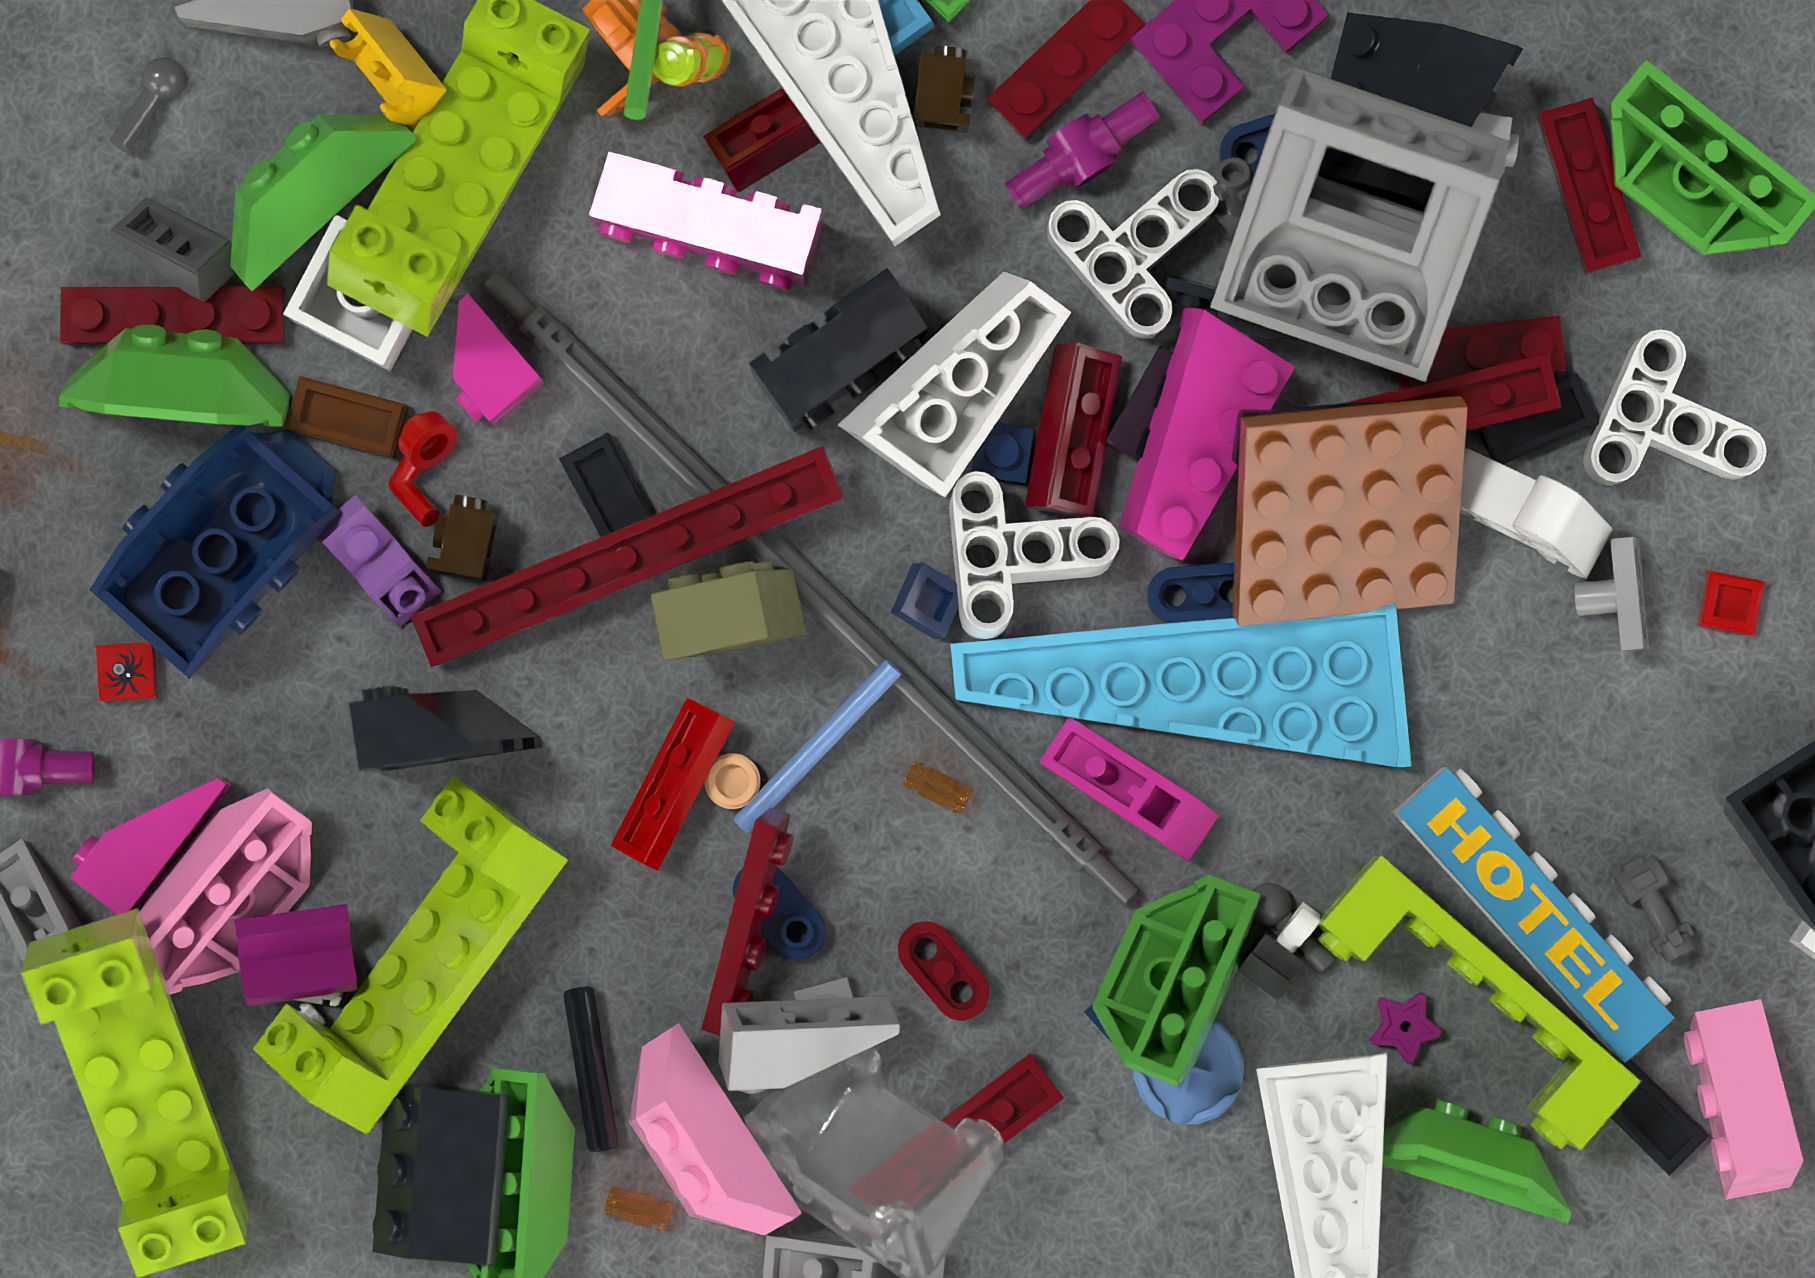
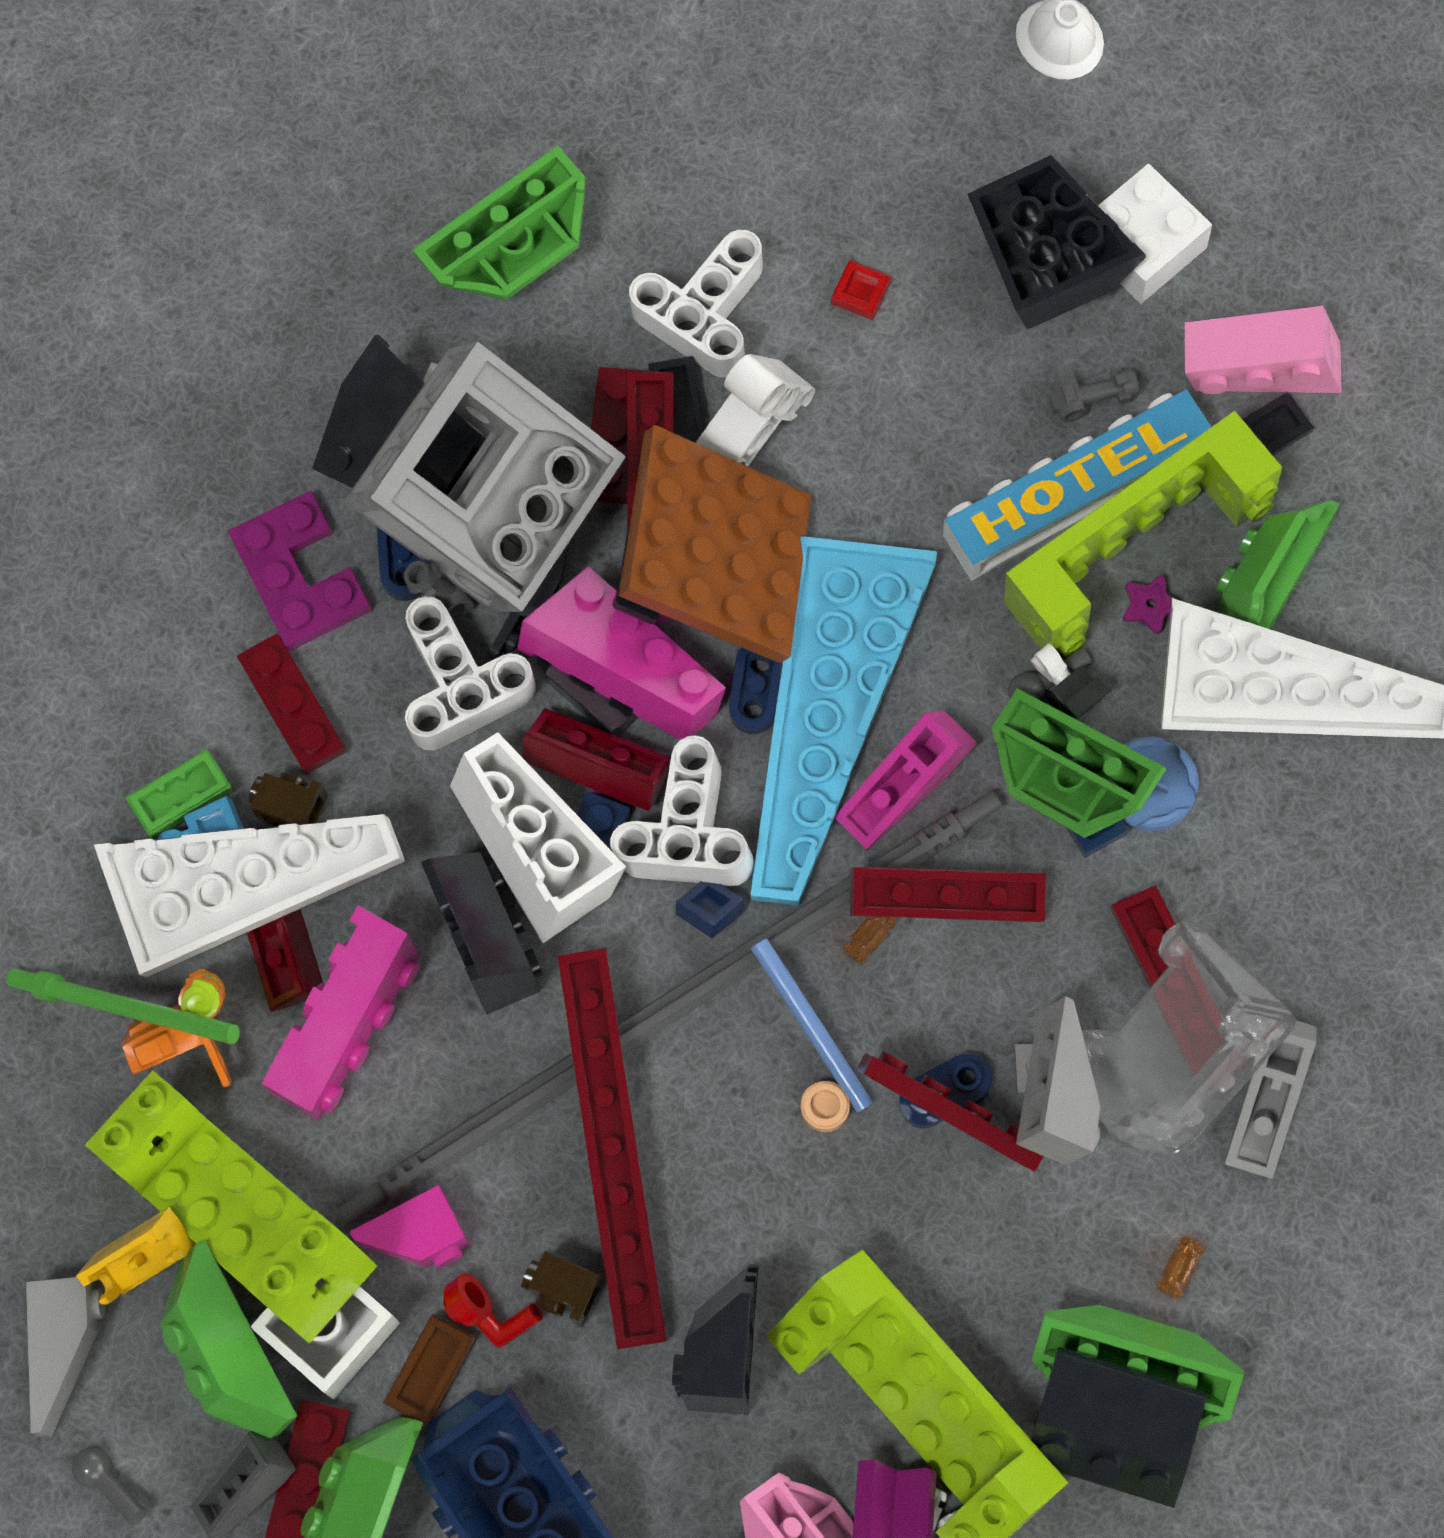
camera: 70 degrees left, 15 degrees down
(378, 562) = (563, 1368): medium lavender slope -> none
(590, 1069) = (1049, 1283): black axle -> none
(605, 485) = (546, 1158): black tile -> none
(672, 784) = (816, 1155): red plate -> none
(703, 1141) = (1131, 1194): bright pink wedge -> none
(727, 610) = (679, 1066): olive brick -> none
(943, 970) = (1024, 962): dark red plate -> none
(999, 866) = (947, 894): none -> dark red plate
(1082, 150) = (367, 703): magenta pin -> none
(1588, 186) = (502, 323): dark red plate -> none
(1619, 595) = (834, 365): light grey tile -> none

